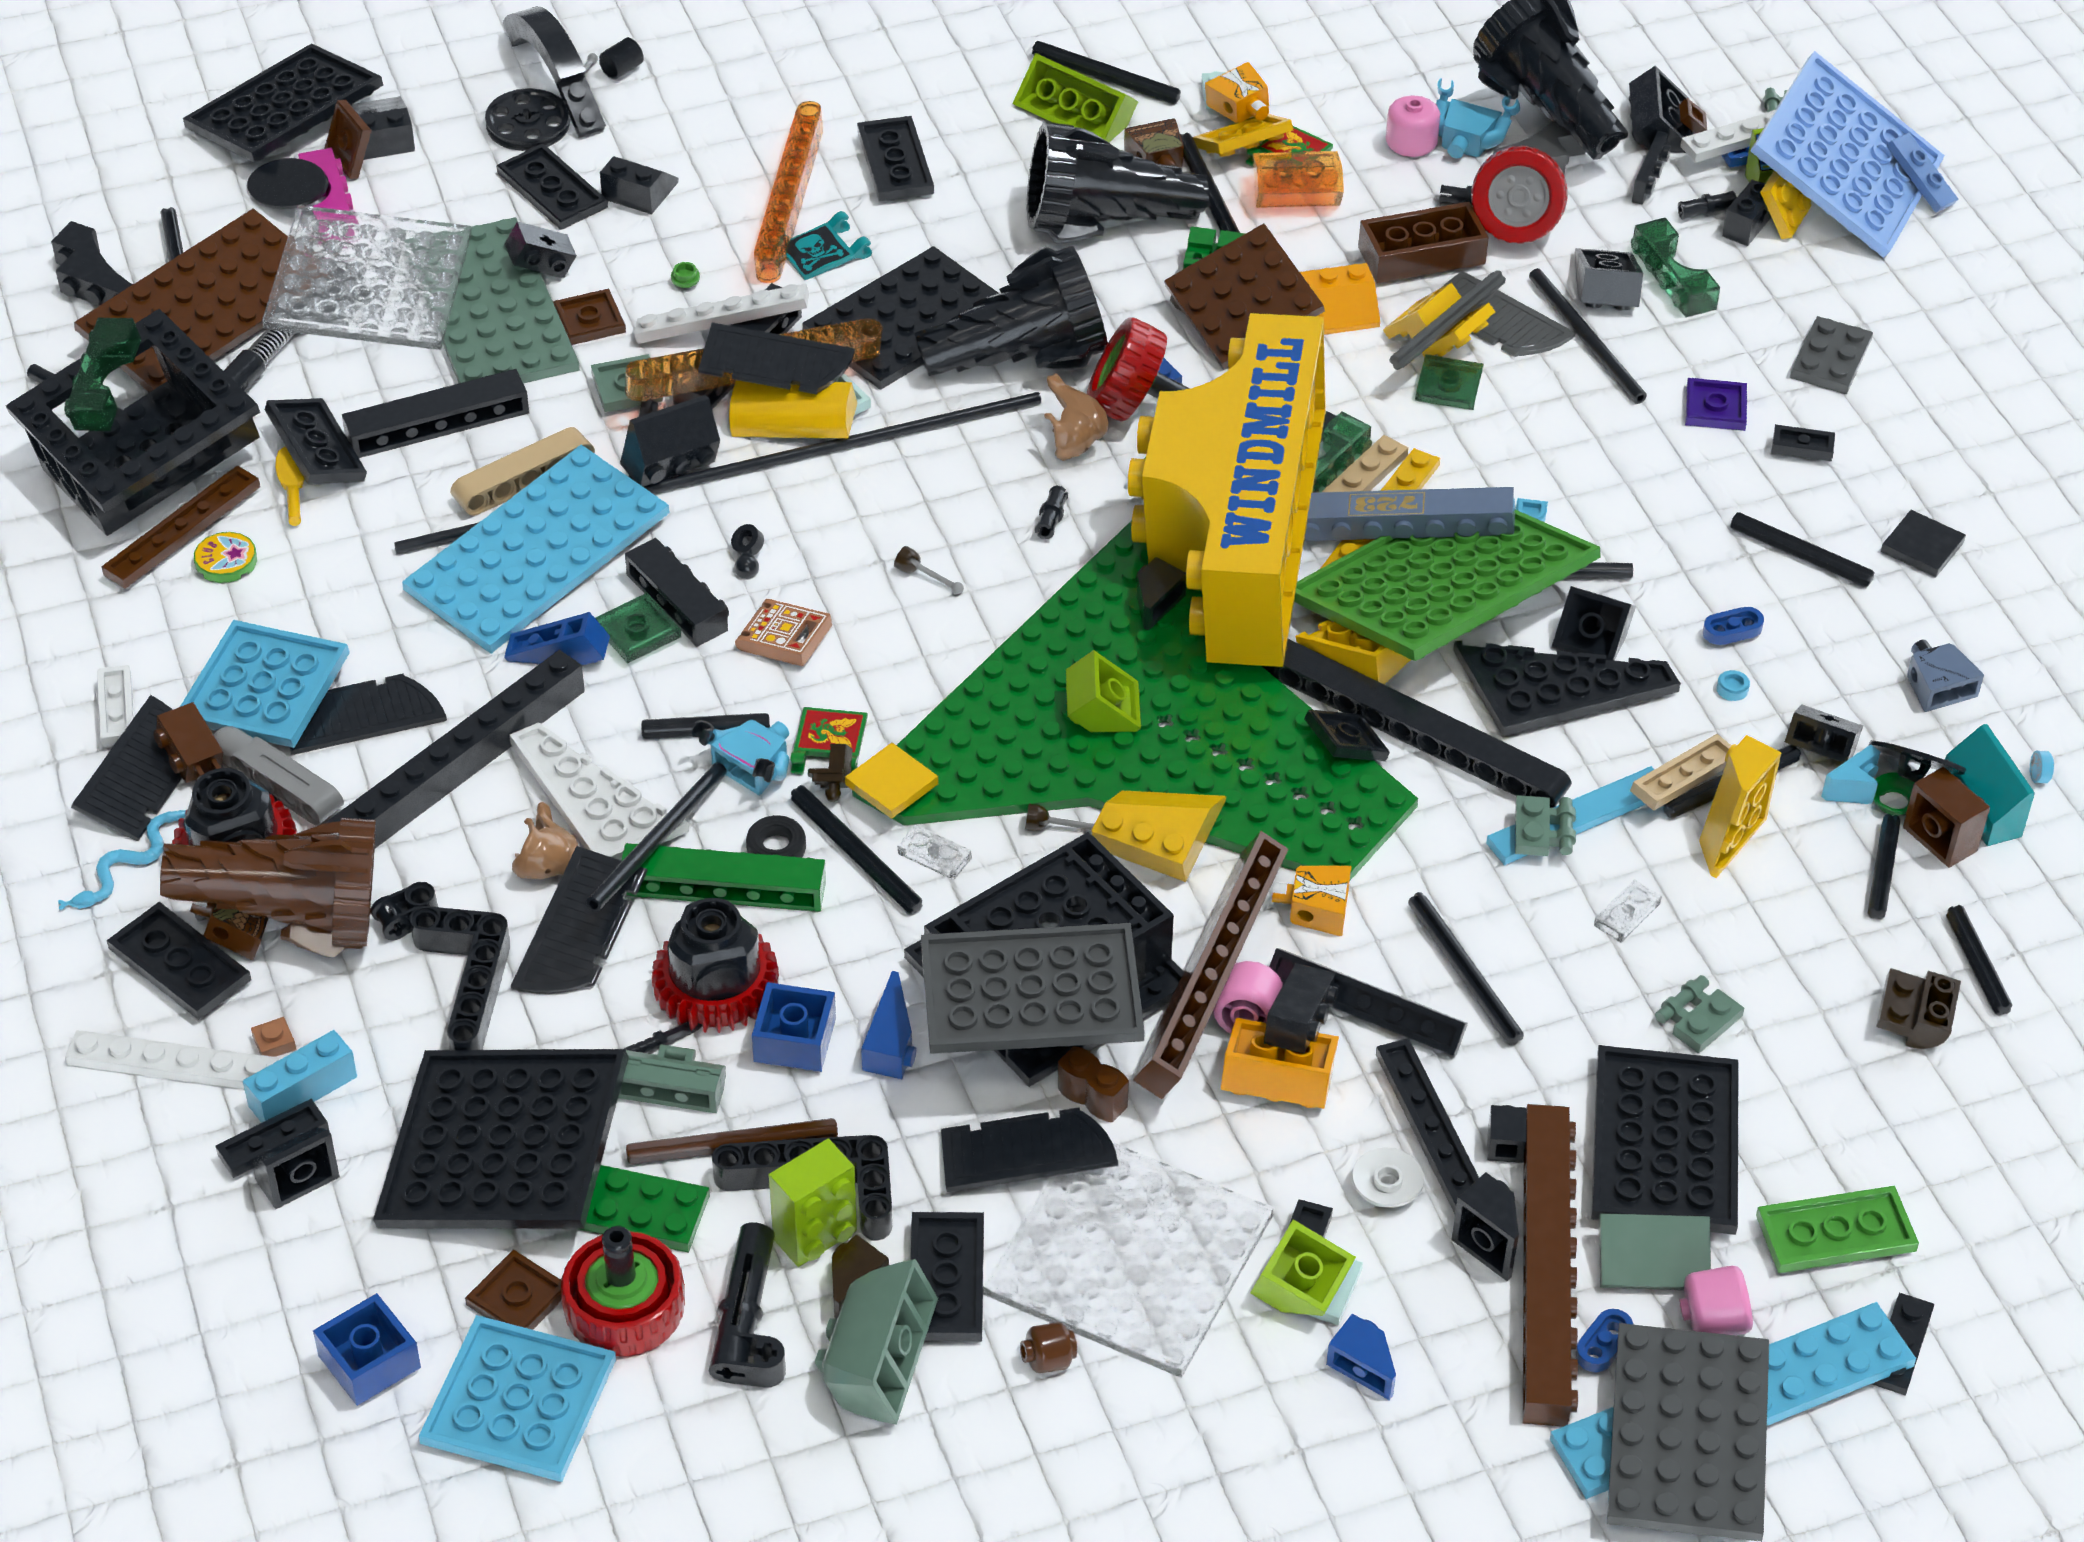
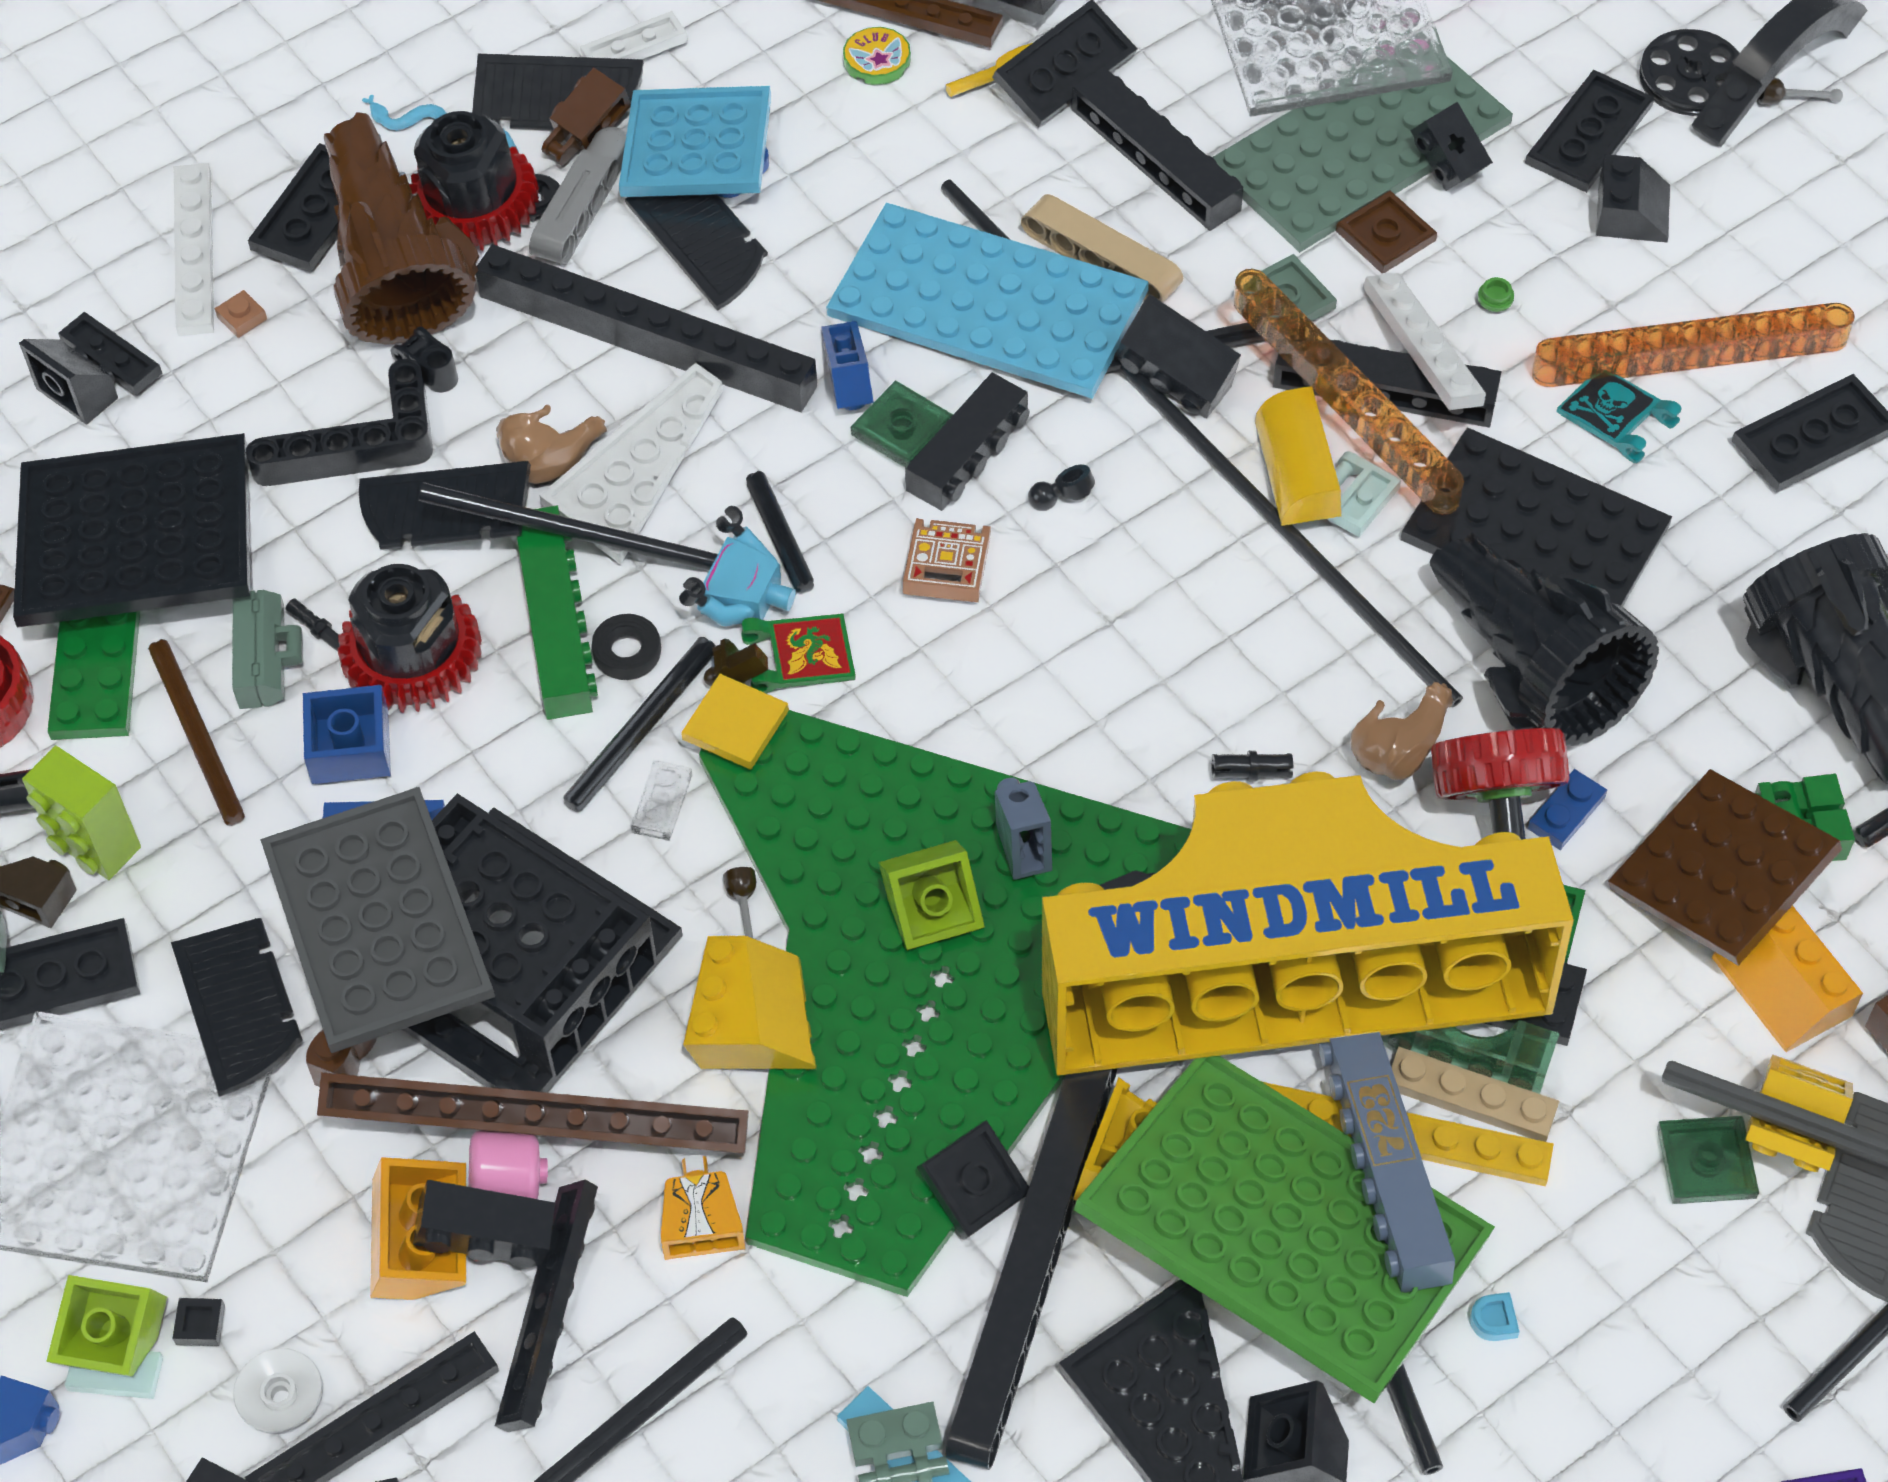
camera: 75 degrees right, 10 degrees up
(300, 1076) = (182, 347): medium azure brick -> none
(621, 58) = (1841, 117): black piece -> none
(750, 1163) = (173, 814): black beam -> none
(773, 359) = (1337, 402): black piece -> none
(909, 561) = (1108, 645): hinge -> none
(1068, 627) = (1018, 810): none -> sand blue torso

